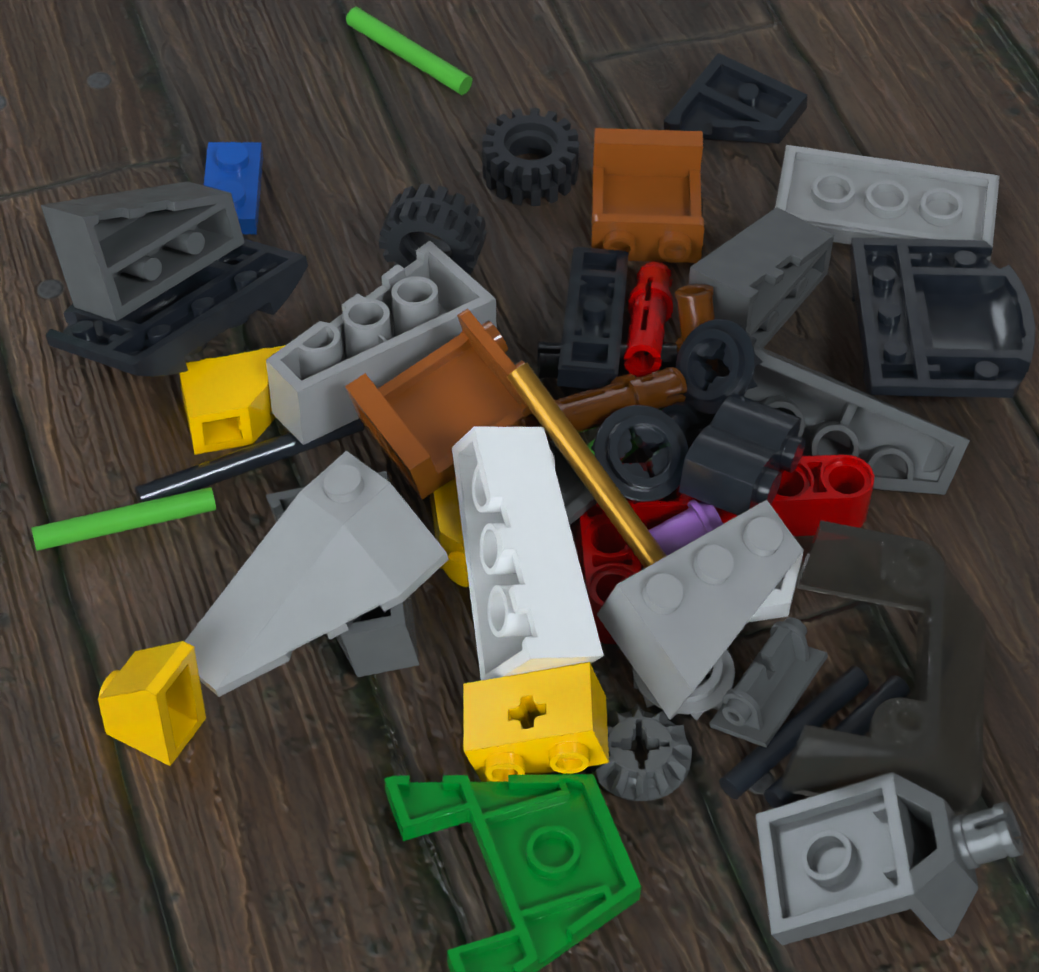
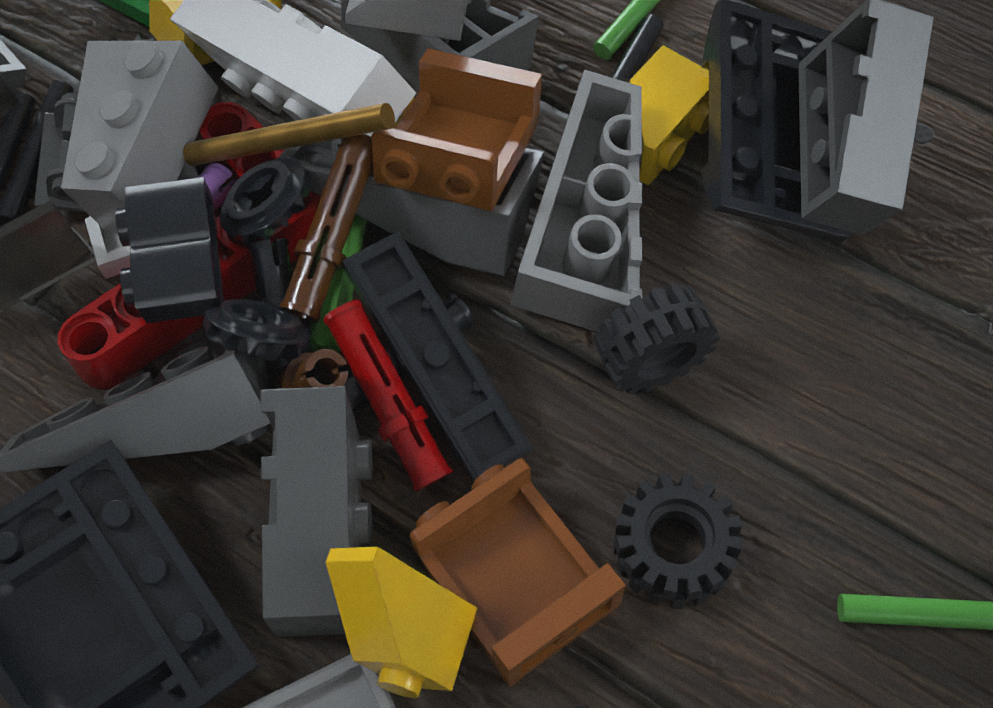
camera: 145 degrees right, 10 degrees up
(237, 170) = (903, 312): blue plate -> none
(742, 190) = (399, 620): none -> yellow slope

